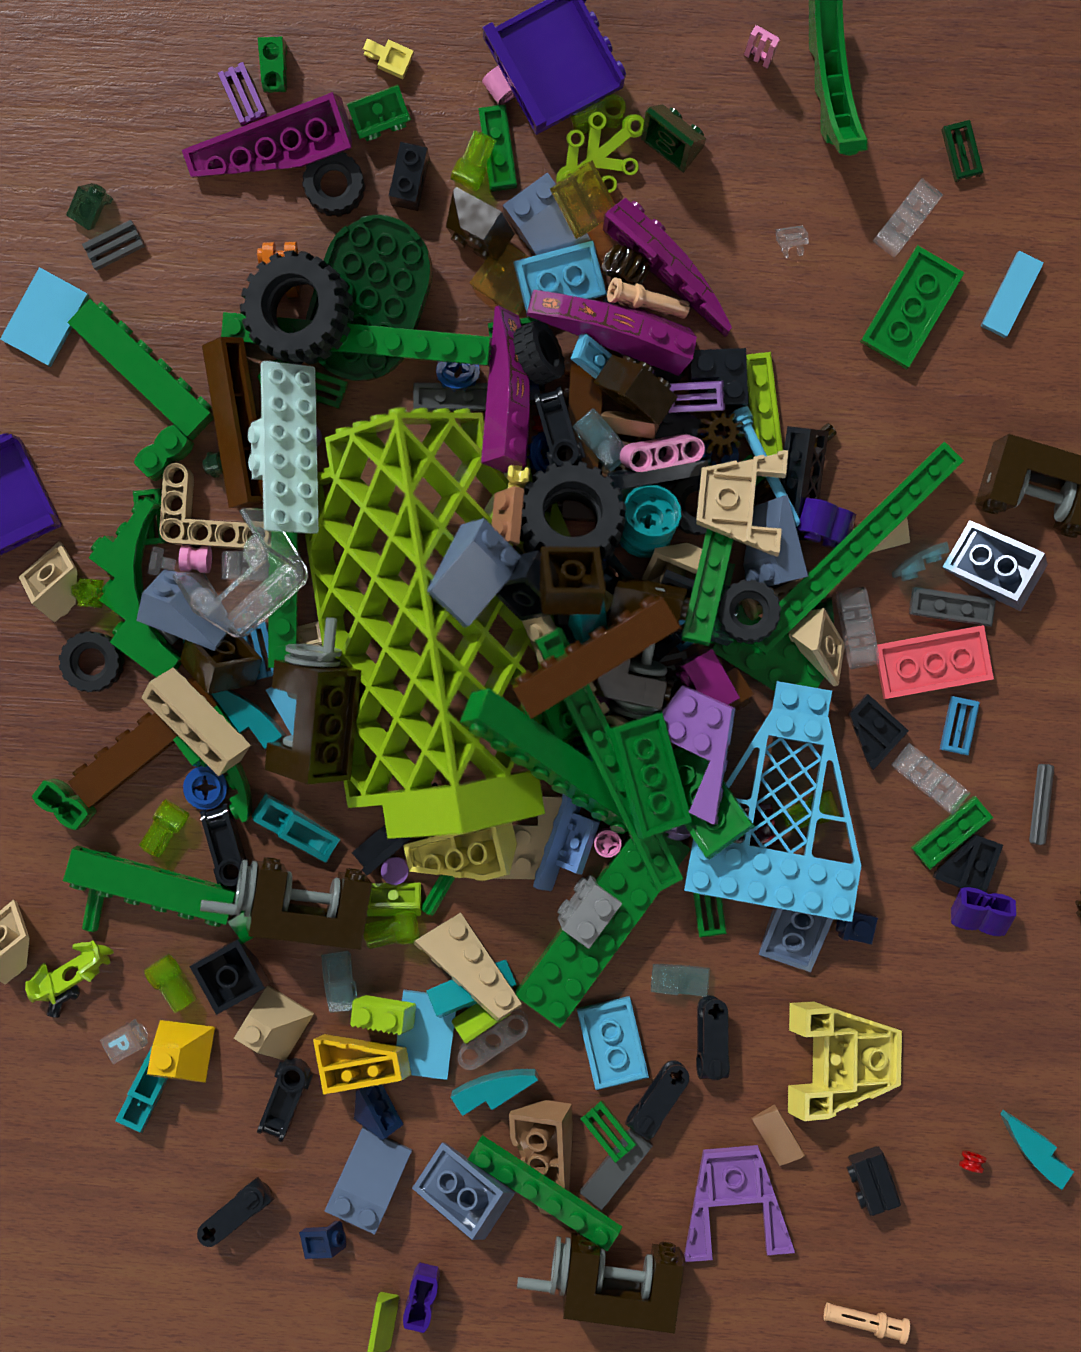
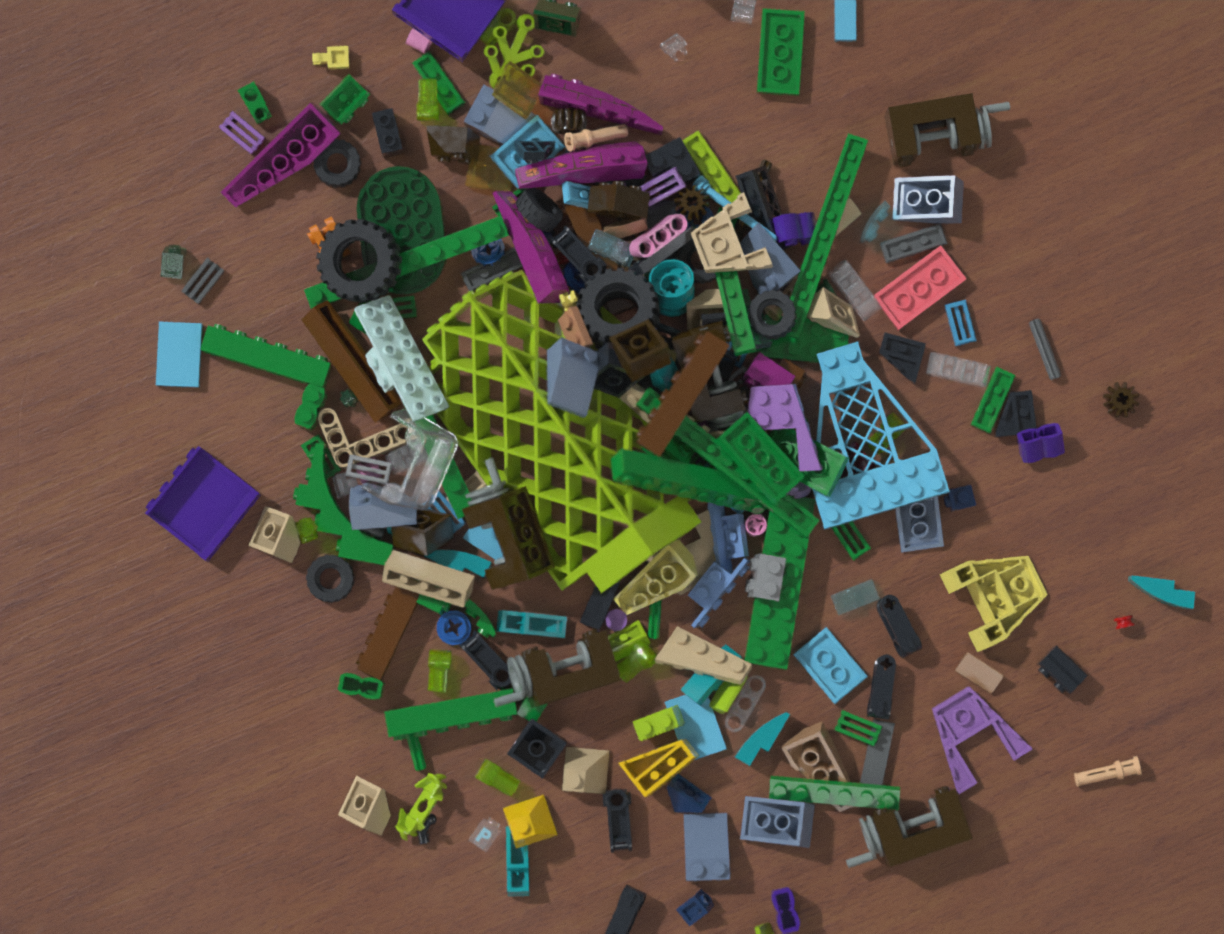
camera: 25 degrees left, 5 degrees down
(212, 573) = (352, 466): none -> light grey tile
(338, 981) = (615, 717): clear light blue slope -> none
(523, 889) = (713, 586): none -> medium blue bracket
(567, 280) = (534, 150): none -> black wing

